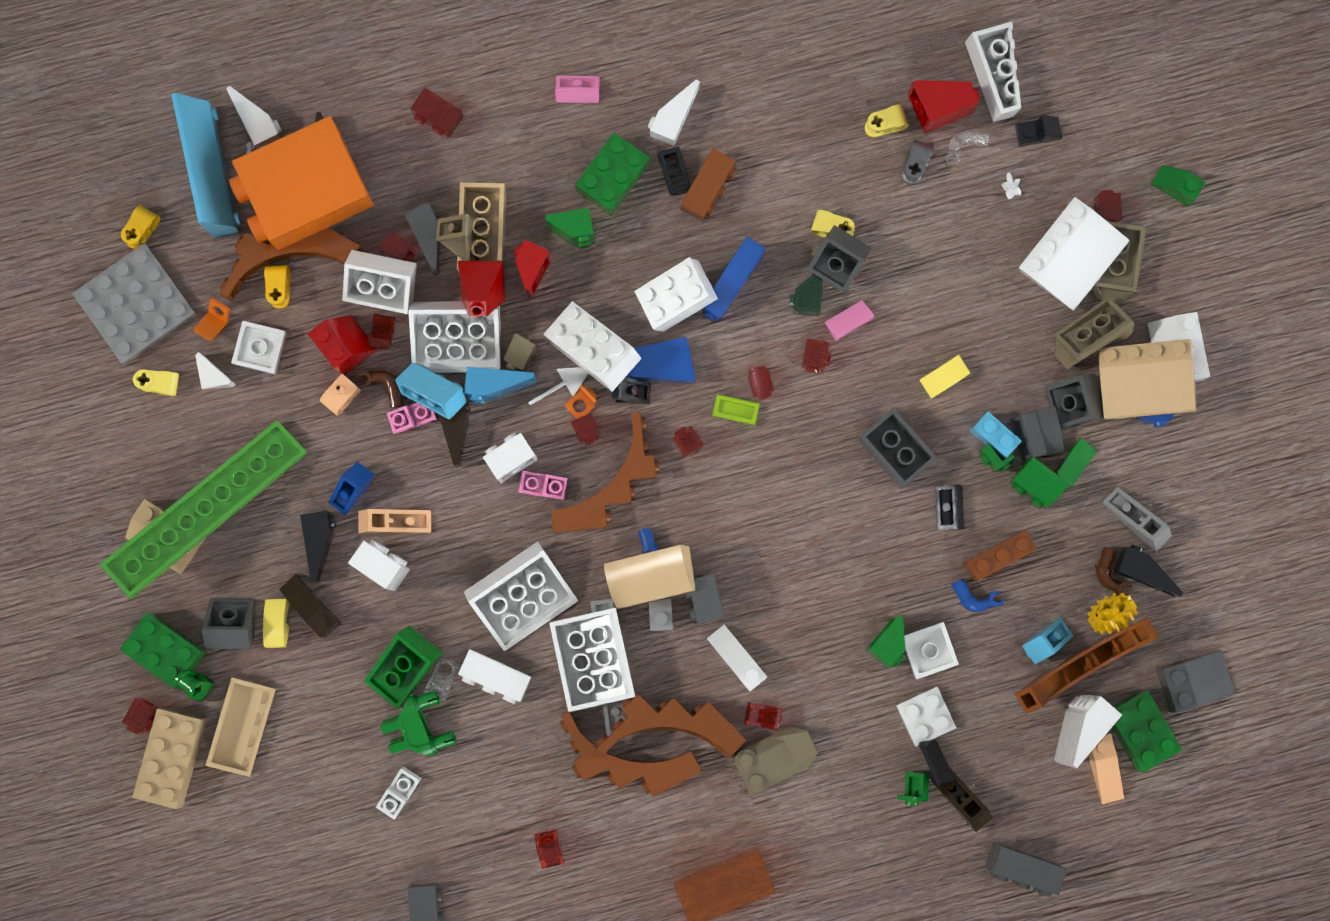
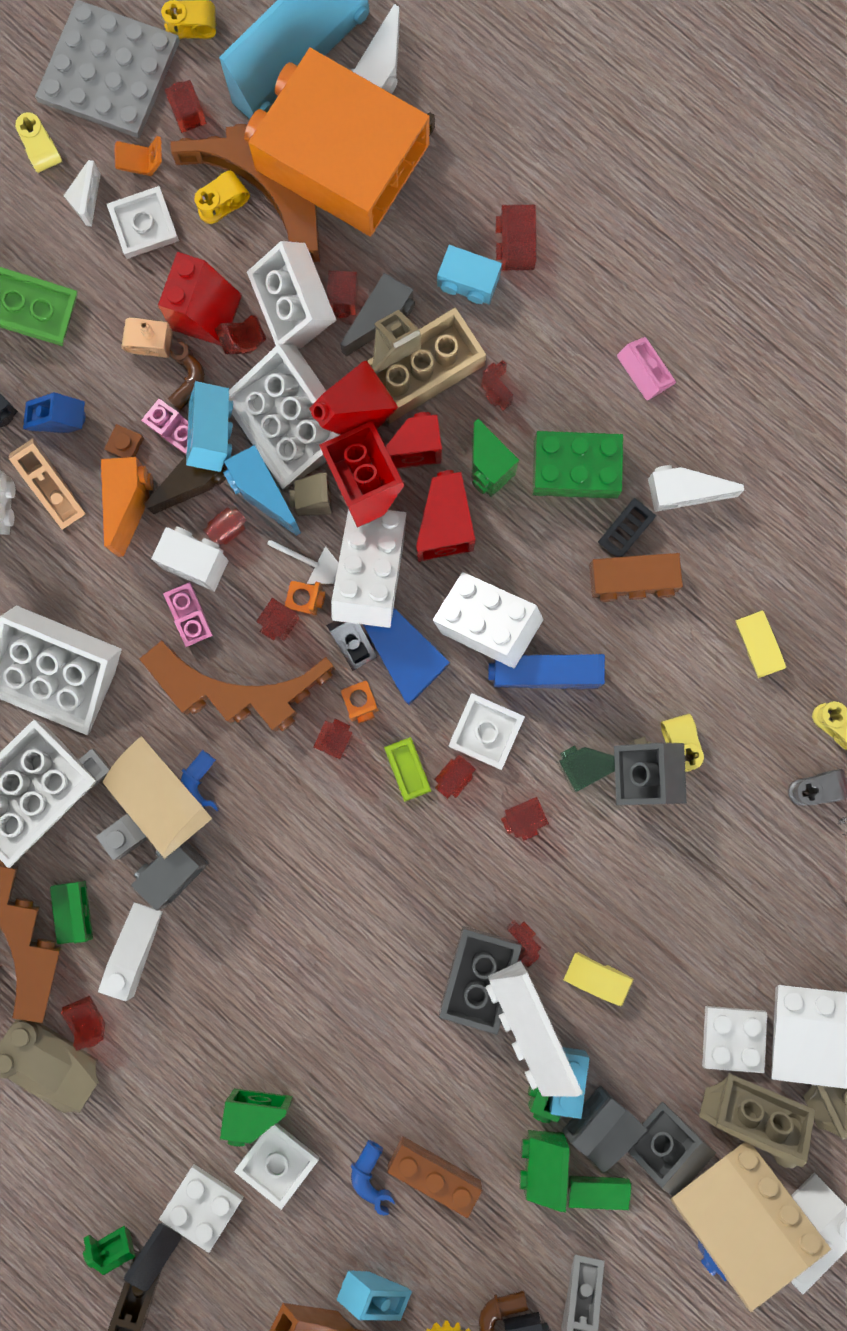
camera: 60 degrees right, 0 degrees up
(199, 268) = (185, 106): none -> clear red brick
(400, 455) = (123, 442): none -> dark orange plate
(435, 470) = (123, 499): none -> orange slope
(440, 160) = (468, 275): none -> medium azure brick
(501, 423) = (225, 526): none -> clear red brick
(529, 193) = (495, 390): none -> clear red bracket
(531, 310) = (363, 472): none -> red slope
(593, 279) = (446, 519): none -> red slope
(681, 412) = (362, 713): none -> orange bracket
(686, 683) = (71, 912): none -> green panel
(744, 344) = (486, 731): none -> white plate
(803, 137) = (760, 644): none -> light yellow slope
(849, 320) = (590, 829): bright pink slope -> none
(887, 403) = (524, 936): none -> clear red bracket
(949, 430) = (533, 1032): none -> white slope
(949, 507) = (454, 1081): black slope -> none
(1035, 317) = (734, 1039): none -> white plate

